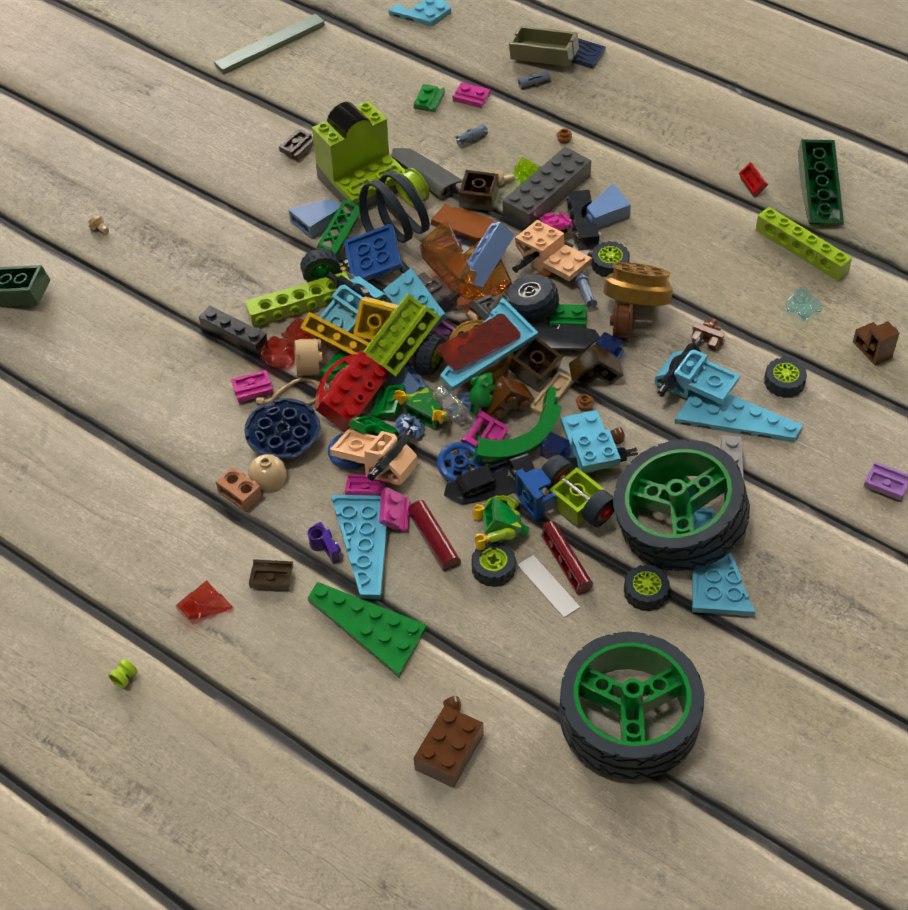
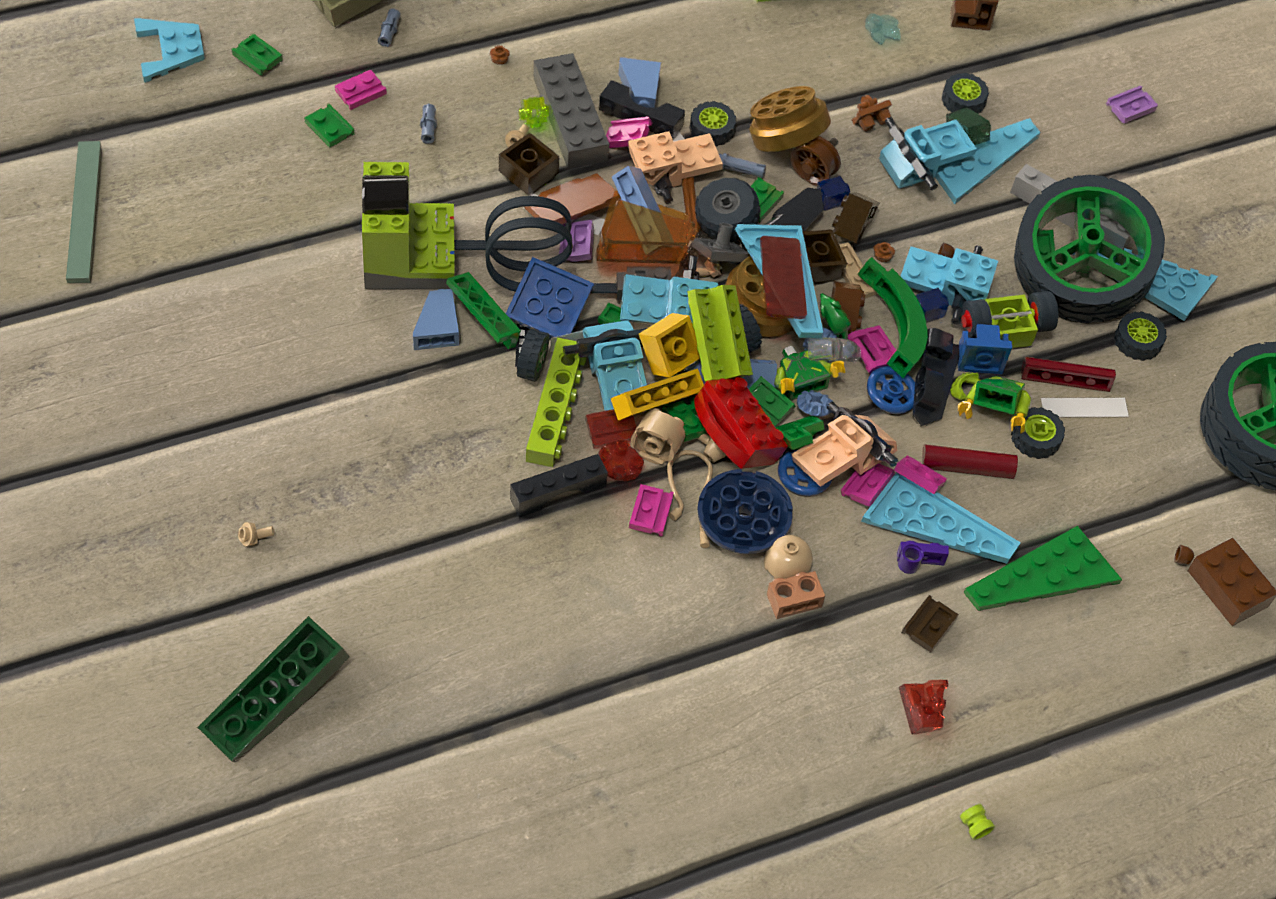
camera: 65 degrees left, 5 degrees up
(297, 144) = (297, 275): dark brown plate -> none
(418, 184) = (473, 211): lime wheel -> none
(437, 178) = (458, 189): dark grey panel -> none
(452, 41) = (257, 54): none -> green plate
(747, 389) = (973, 124): none -> clear green brick

